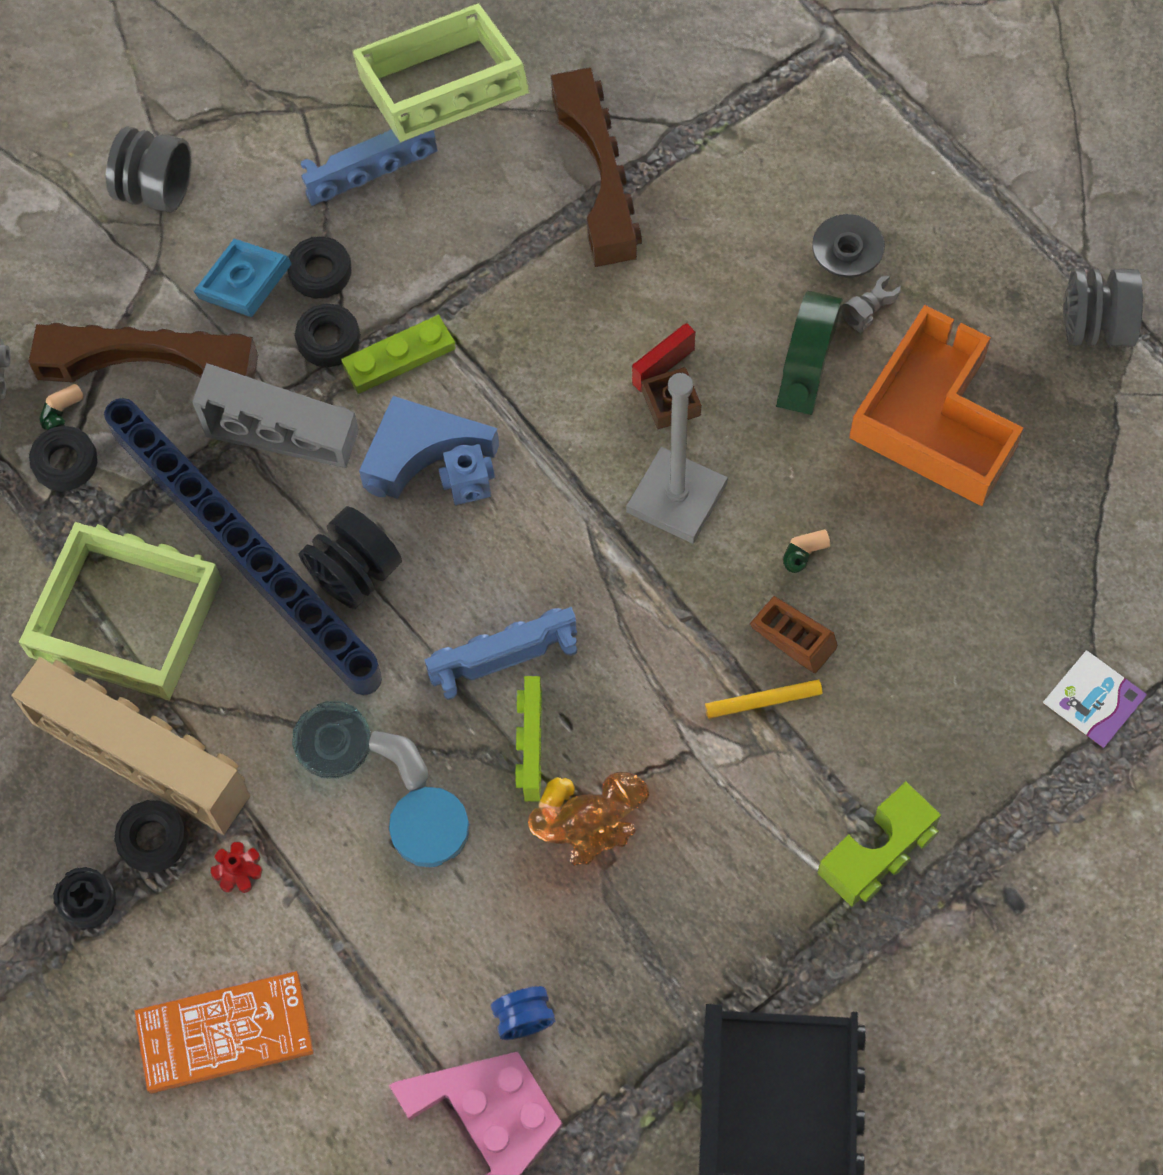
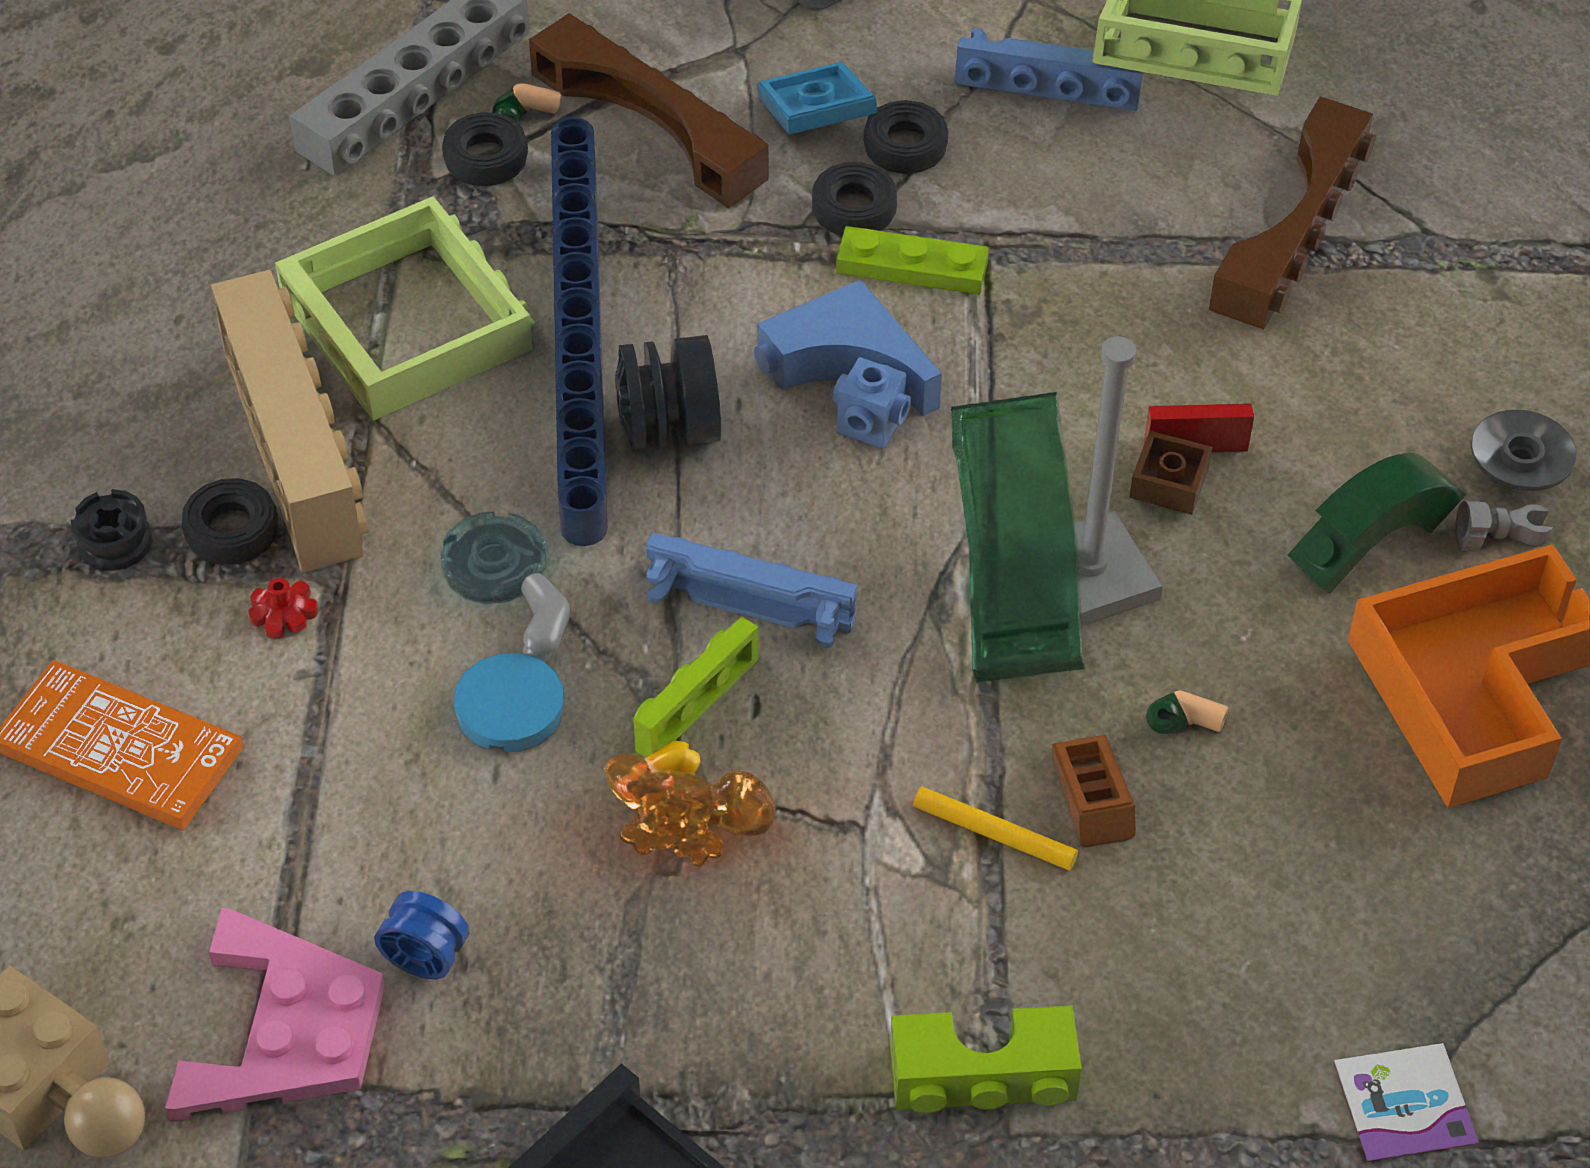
camera: 35 degrees right, 15 degrees down
(273, 418) = (718, 227): light grey wedge -> none
(637, 510) = (1019, 537): none -> clear green windscreen

